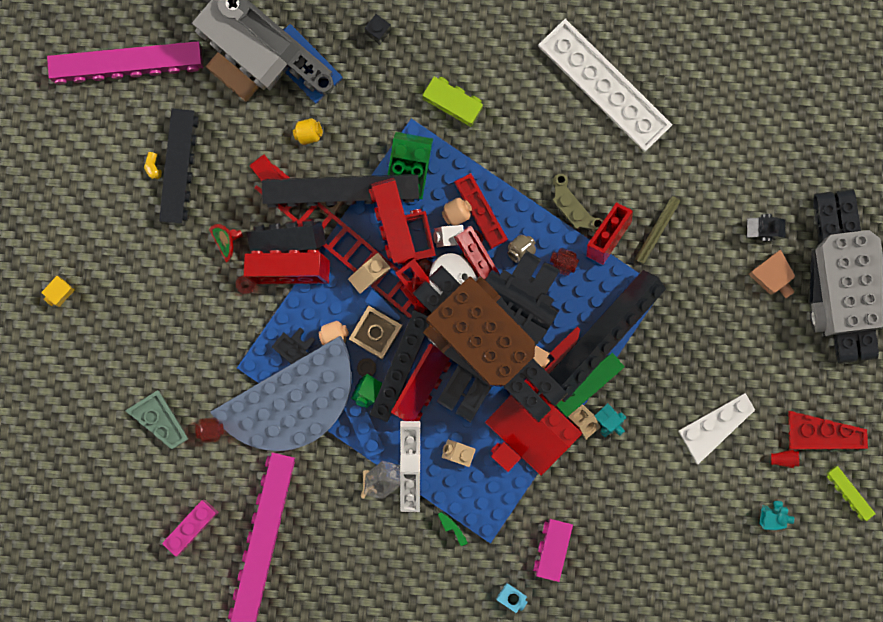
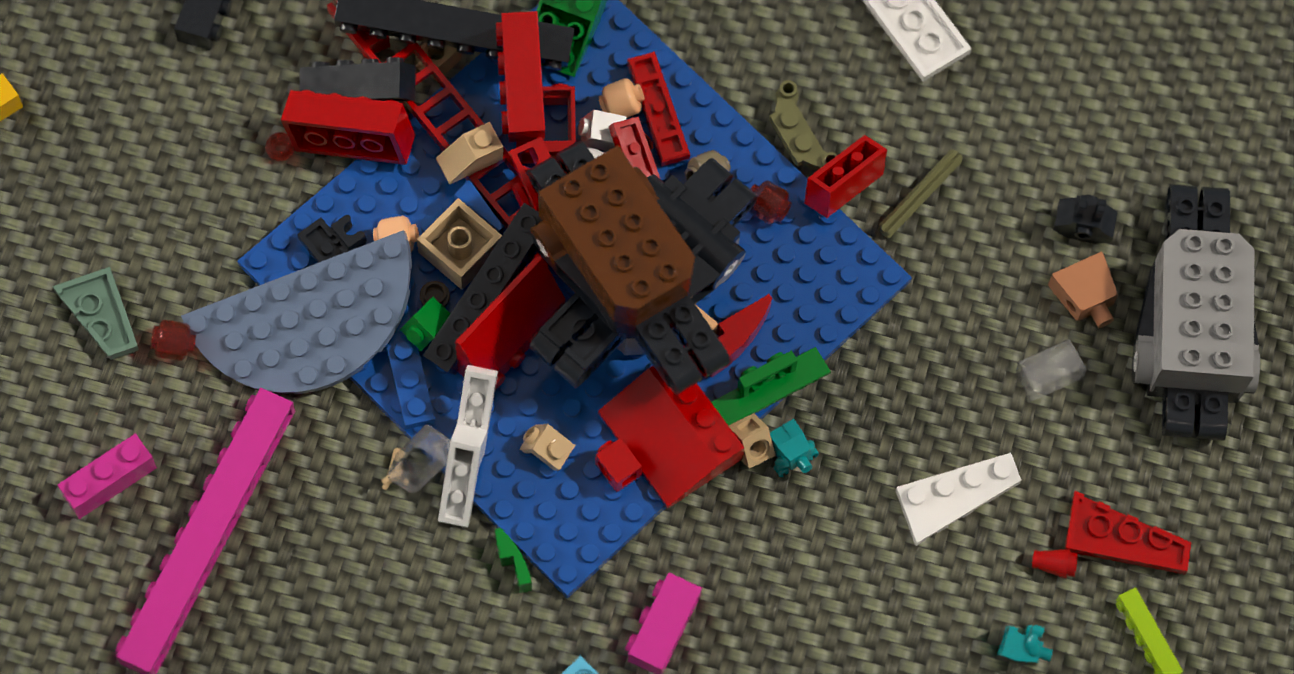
camera: 10 degrees right, 15 degrees down
(224, 239) = (264, 71): shield -> none
(607, 332) = (812, 310): black brick -> none
(760, 334) = (1050, 370): none -> clear piece

